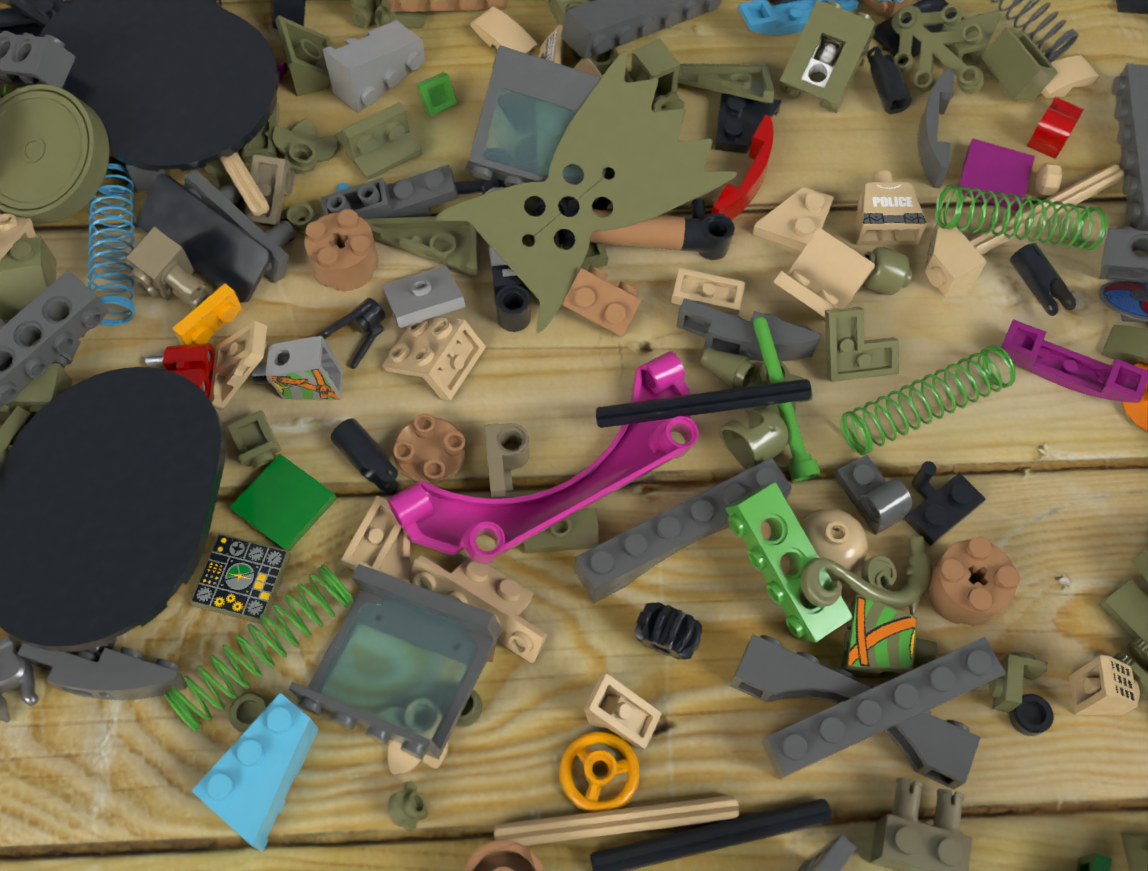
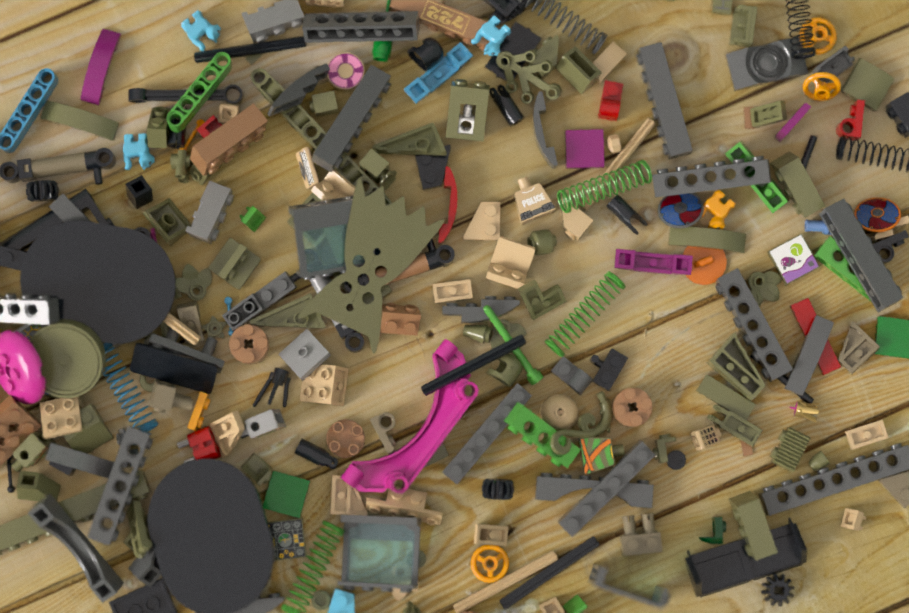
camera: 25 degrees left, 20 degrees up
(499, 29) = (272, 158): tan slope -> none

